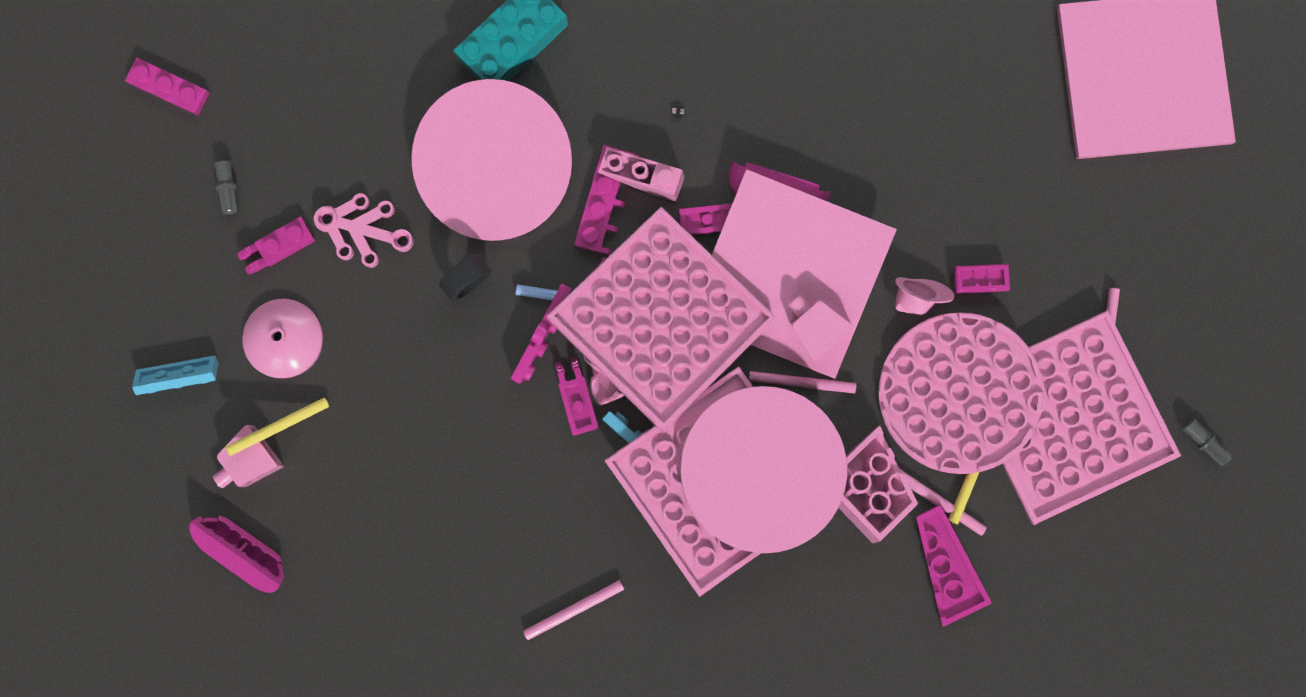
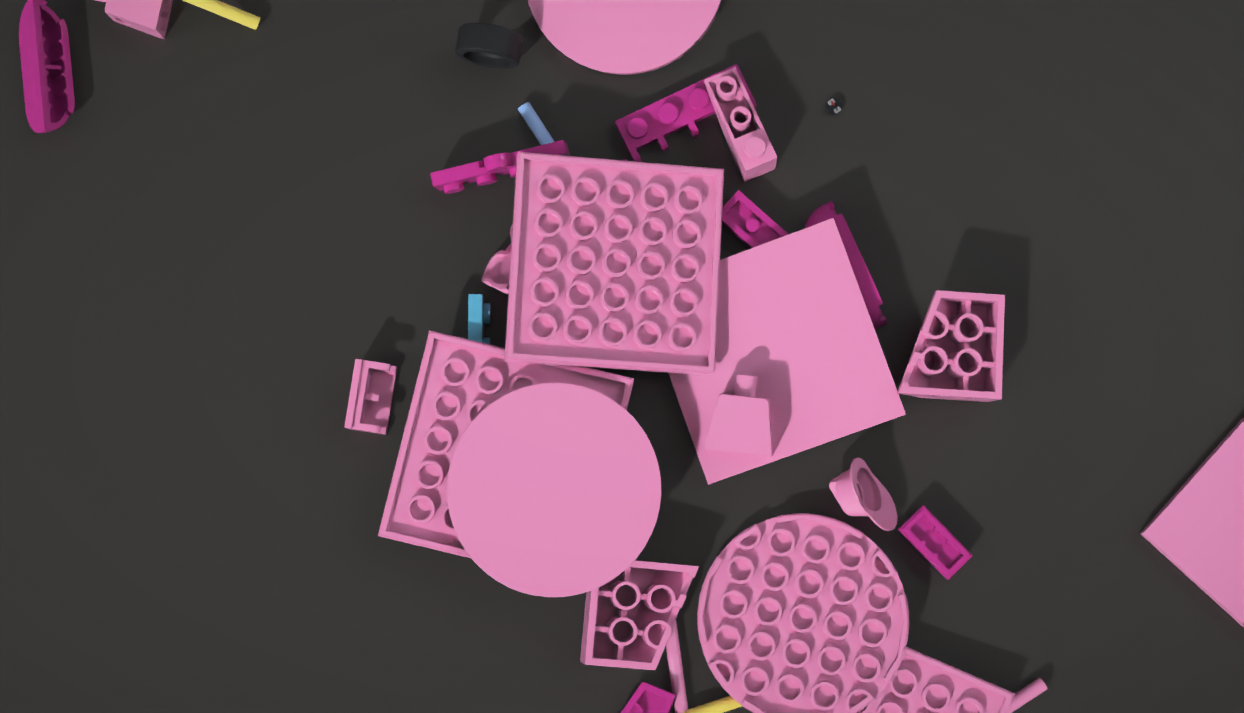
camera: 45 degrees right, 0 degrees up
(573, 610) = (264, 429): bright pink bar -> none
(576, 400) = (467, 254): dark pink hinge -> none
(610, 530) = (371, 396): none -> bright pink hinge
(802, 382) = (677, 456): bright pink bar -> none
(885, 165) = (958, 349): none -> bright pink wedge

